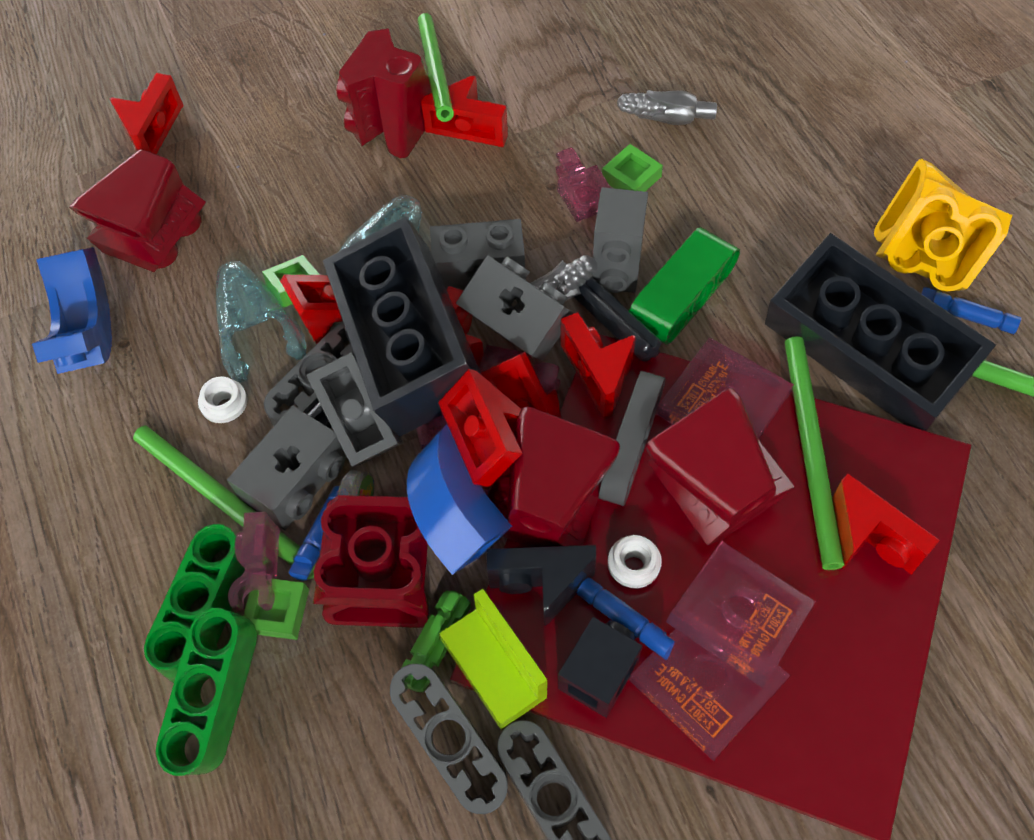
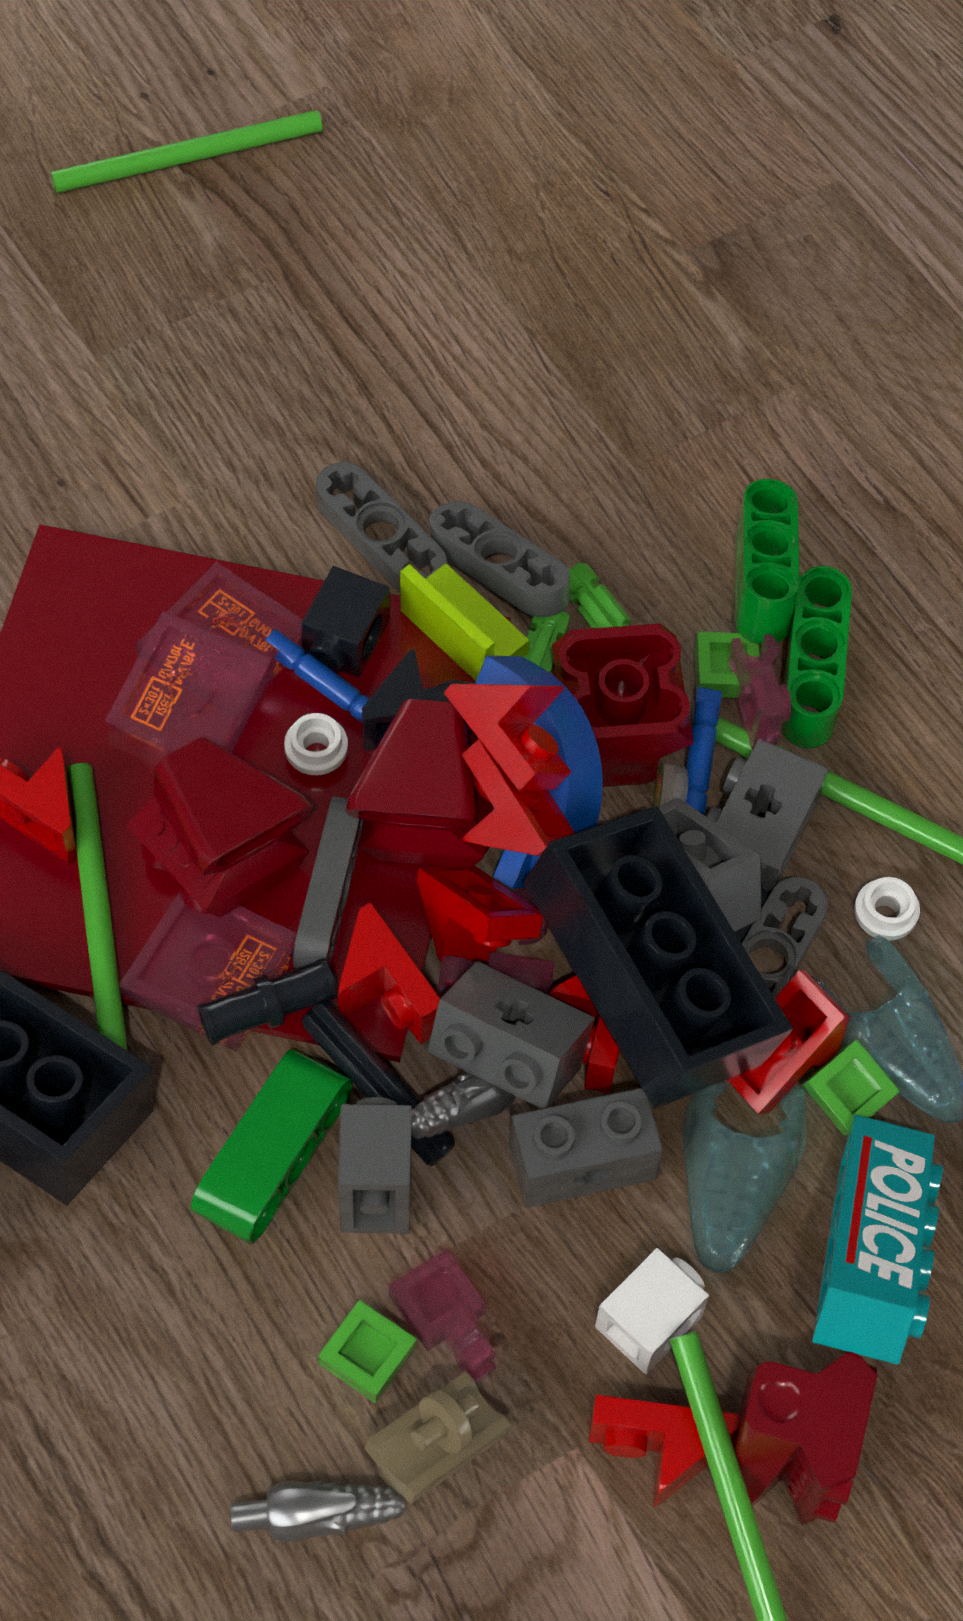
camera: 165 degrees right, 0 degrees up
(311, 156) = (877, 1242): none -> teal brick
(366, 679) = (595, 600): none -> bright green axle
(456, 172) = (651, 1307): none -> white brick
(477, 467) = (505, 725): none -> red slope
(596, 112) = (436, 1438): none -> dark tan hips
(686, 346) = (267, 1001): none -> black pin

